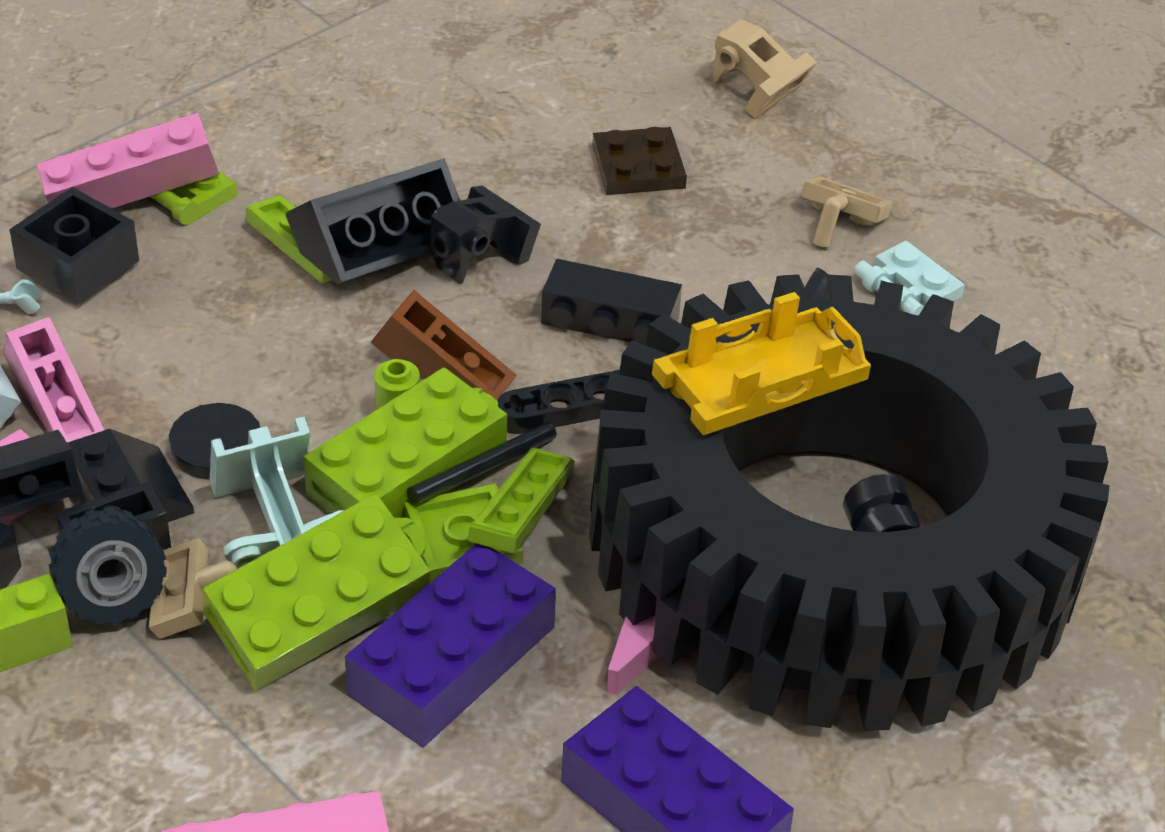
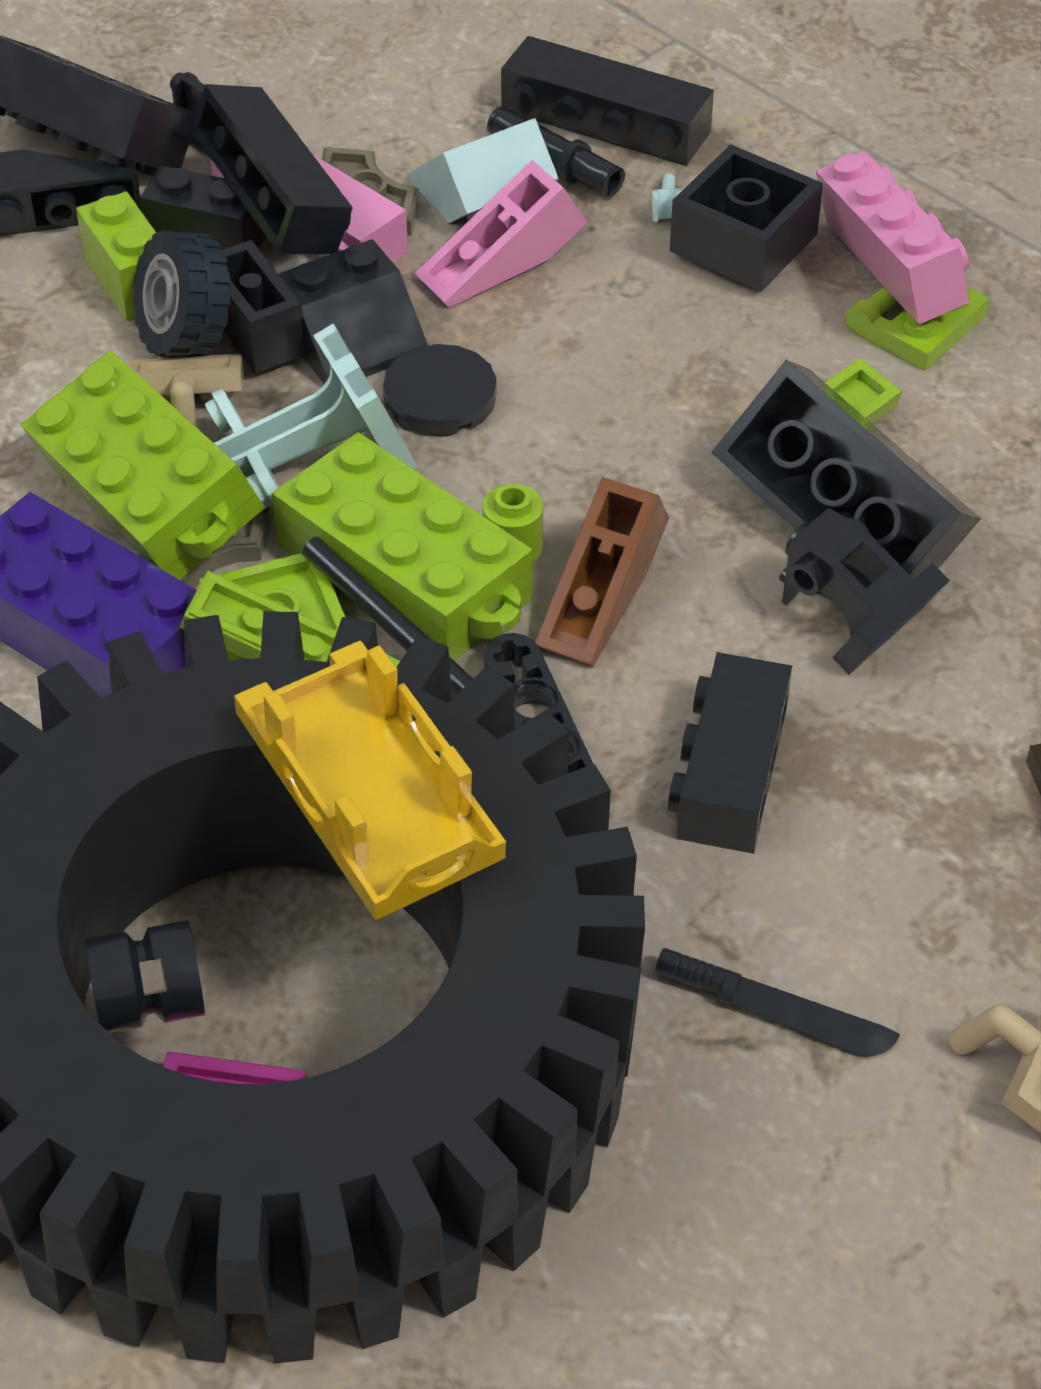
camera: 90 degrees right, 5 degrees up
(915, 271) = (889, 1178): light aqua plate -> none

